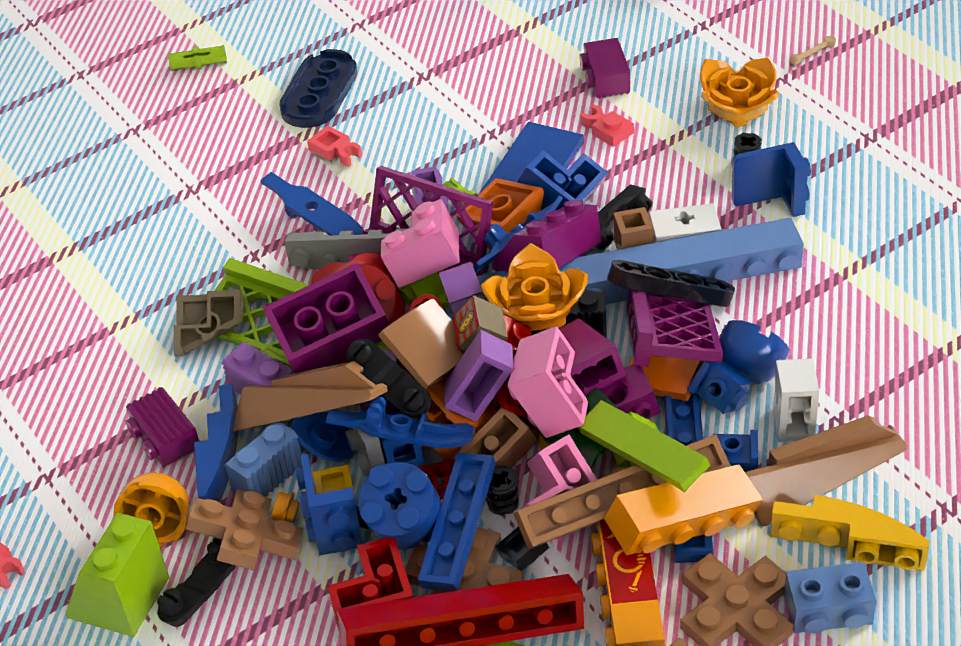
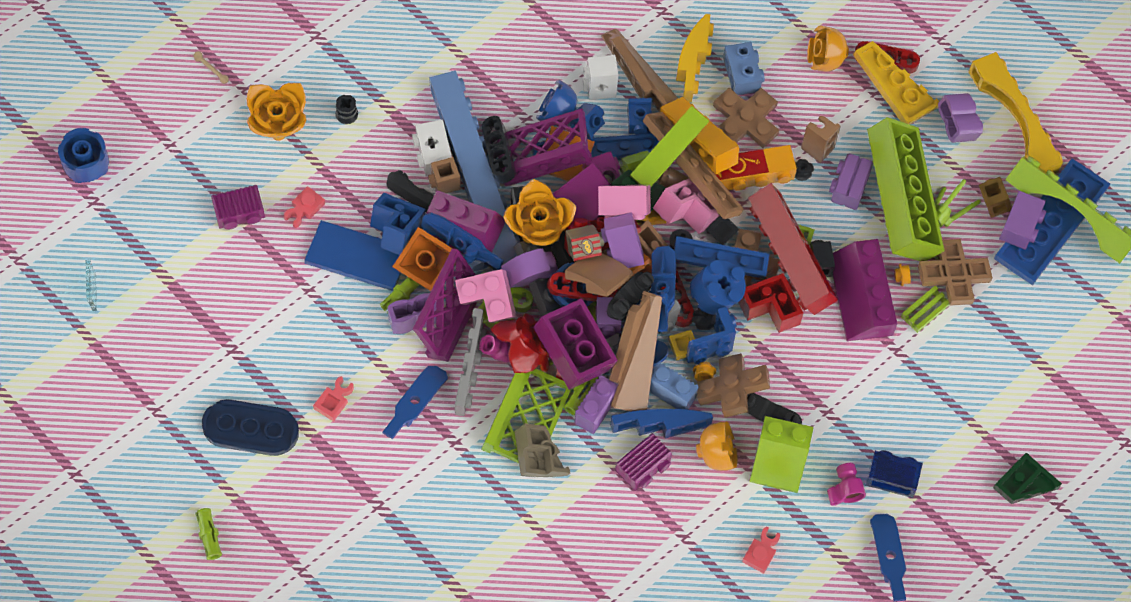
camera: 105 degrees left, 20 degrees up
(771, 175) = (386, 77): blue bracket -> none

